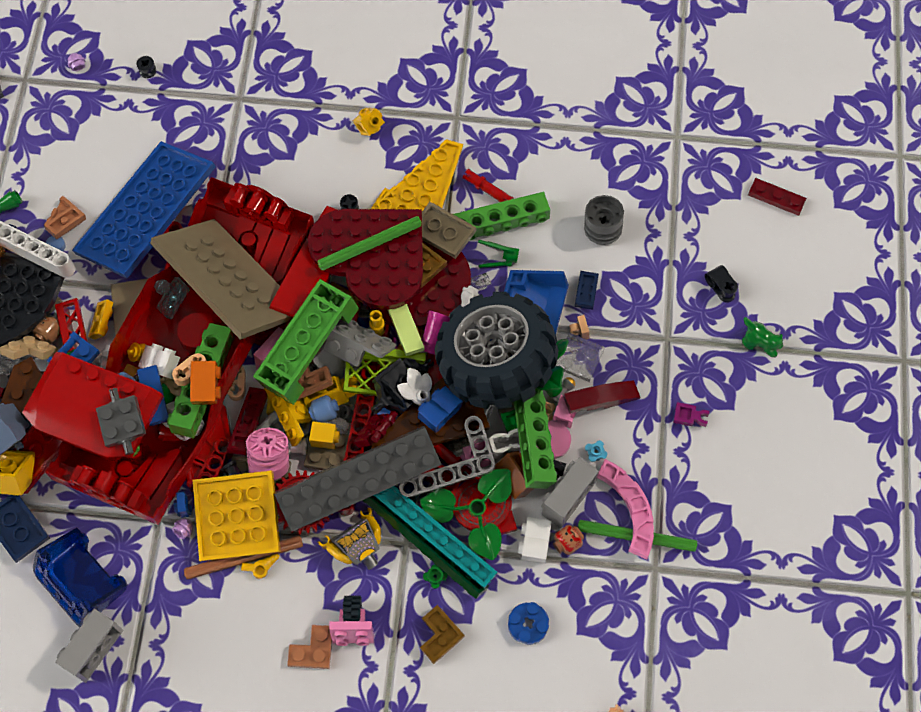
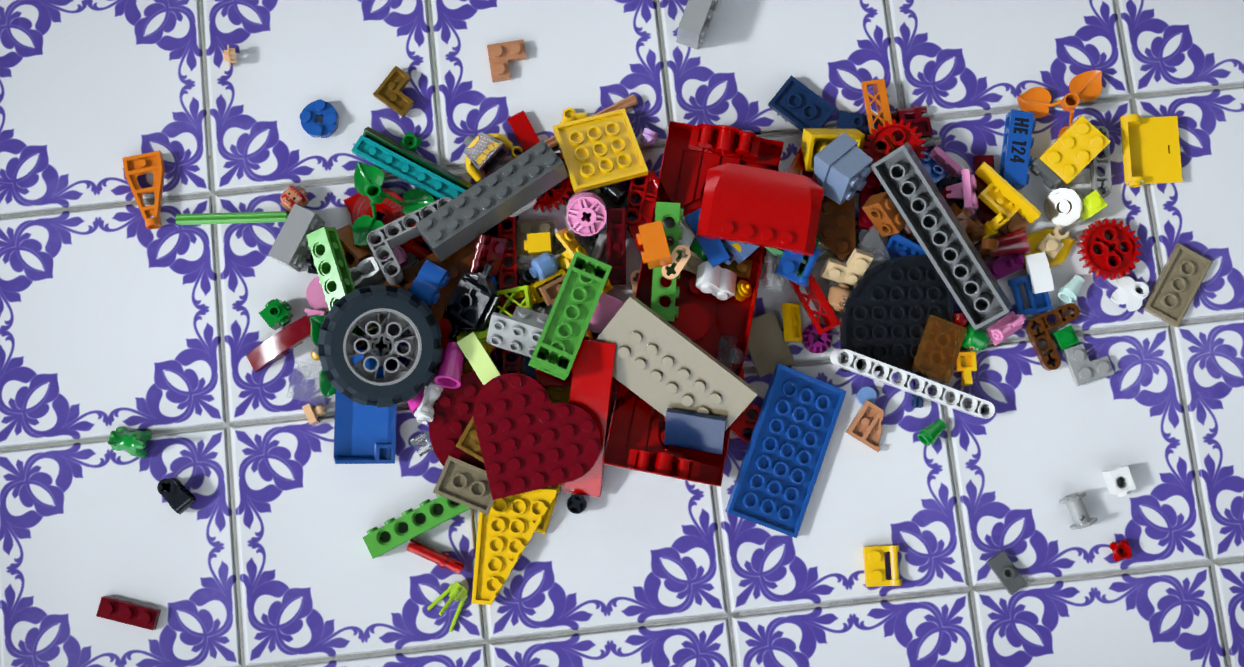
camera: 170 degrees right, 15 degrees up
(76, 62) = (922, 620): lavender plate -> none
(76, 577) = (726, 72): clear blue windscreen -> none
(90, 301) = (817, 347): none -> magenta gear
(100, 109) = (875, 566): none -> yellow plate
(121, 421) = (723, 192): dark grey plate -> none
(144, 71) = (838, 629): black wheel -> none
(182, 506) = (653, 151): blue plate -> none
(220, 230) = (694, 431): none -> dark blue tile
(312, 564) = (523, 130): none -> red tile
(351, 624) = (472, 79): bright pink plate -> none
(368, 121) = (578, 609): yellow brick -> none
(369, 243) = (533, 439): bright green axle -> none
(377, 322) = (506, 357): yellow pin -> none
(415, 385) = (454, 298): white plate -> none
(474, 155) = (456, 592): none -> lime plant
(510, 255) = (398, 481): green plant -> none
(536, 540) = (323, 192): white brick -> none
(586, 290) = (314, 458): dark blue plate -> none
(601, 454) = (281, 285): medium azure plate -> none
(602, 425) = (277, 313): none -> green brick
(603, 219) = (296, 545): dark grey wheel -> none
(636, 503) = (233, 243): bright pink tile -> none
(687, 415) = (196, 345): magenta plate -> none
(724, 611) = (145, 164): none -> orange plate

